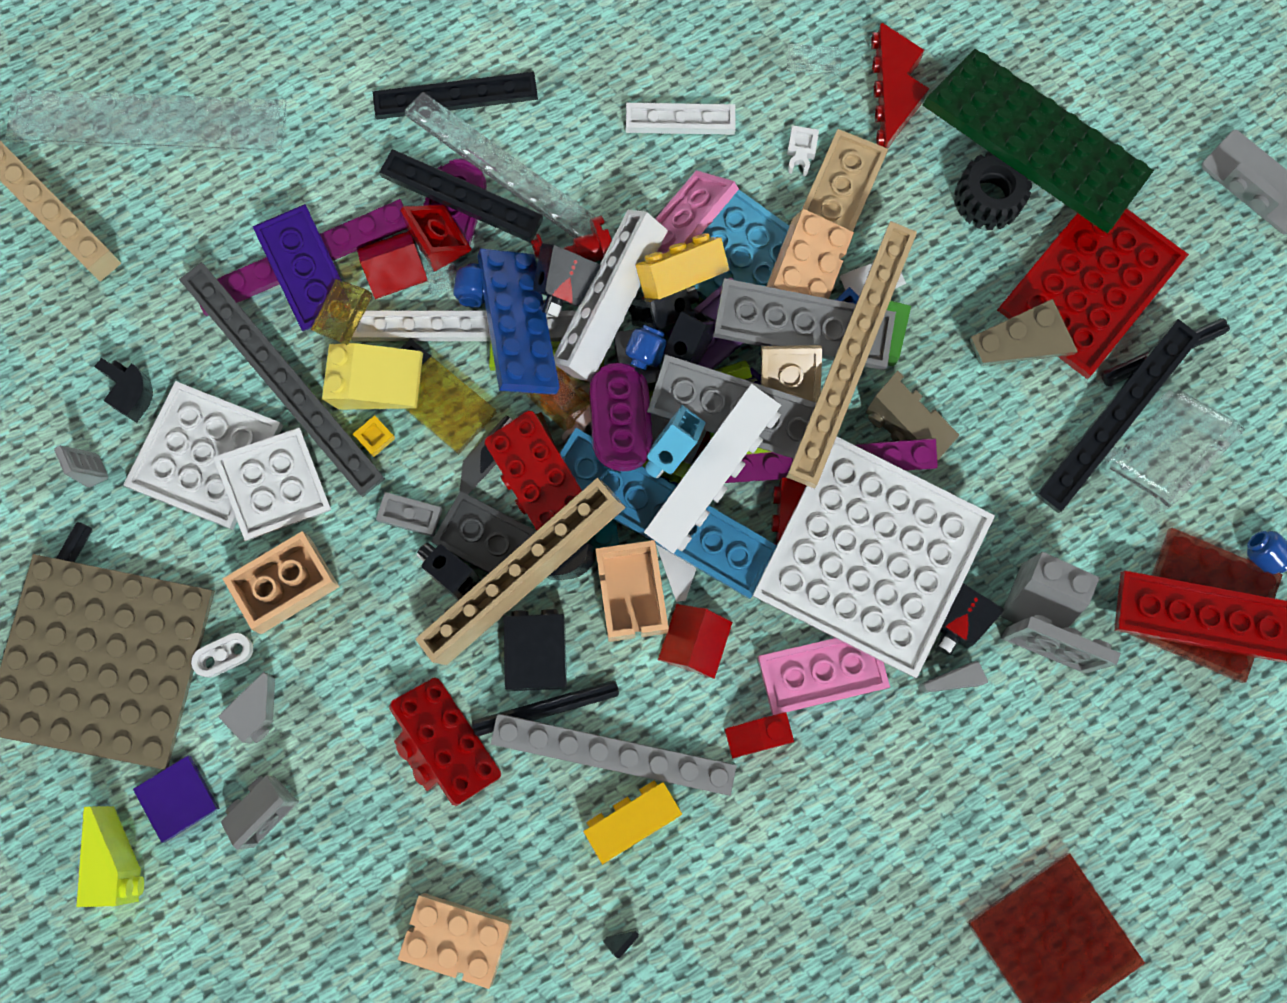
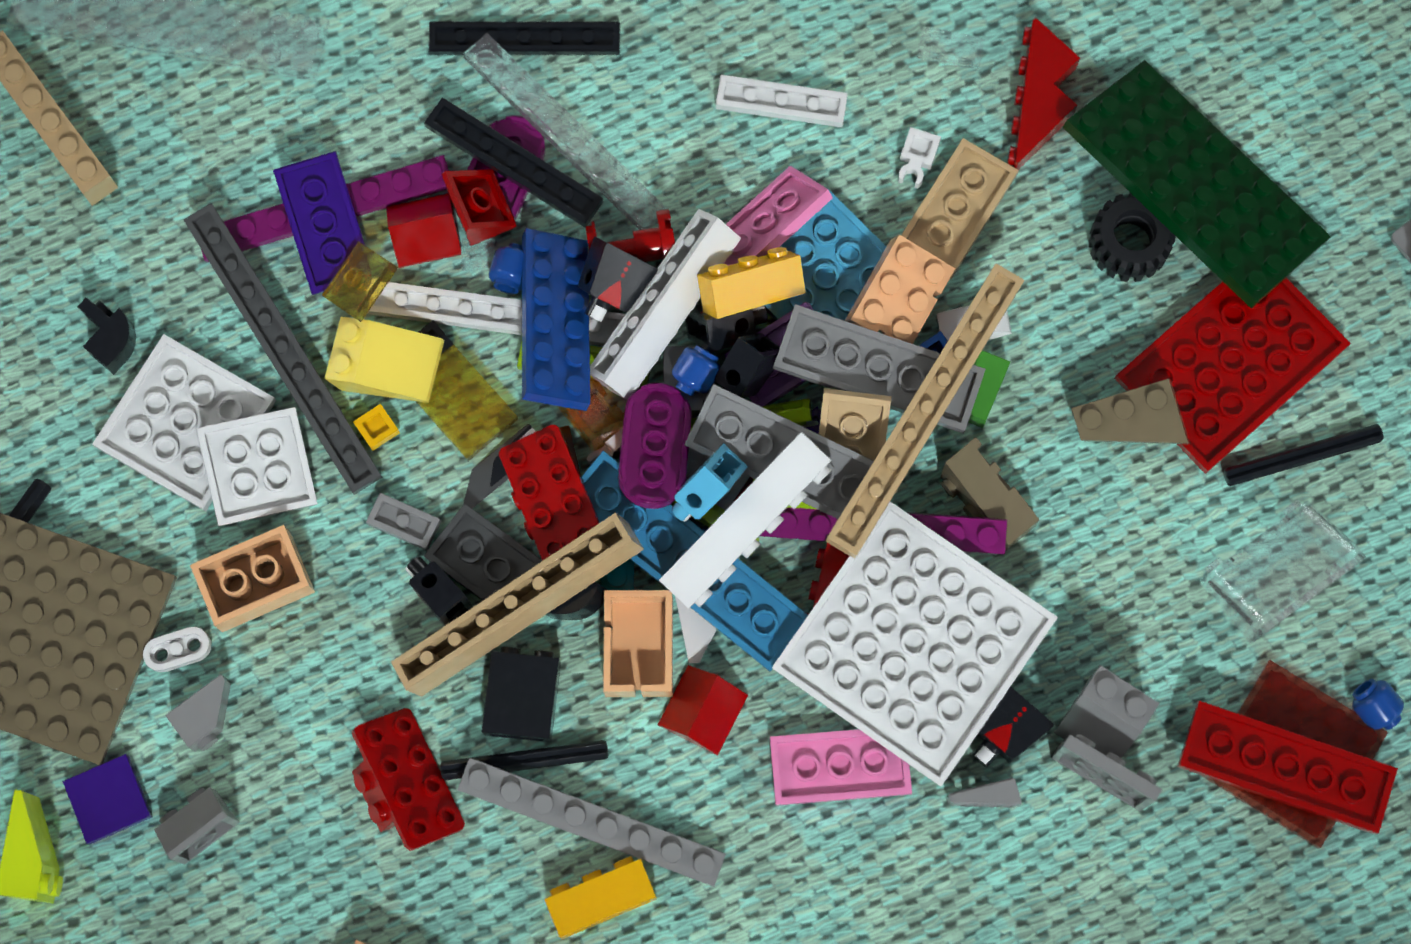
camera: 15 degrees right, 0 degrees up
(81, 465) = (51, 416): light grey slope -> none
(759, 735) = (756, 824): red slope -> none
(1118, 416) = (1229, 522): black plate -> none

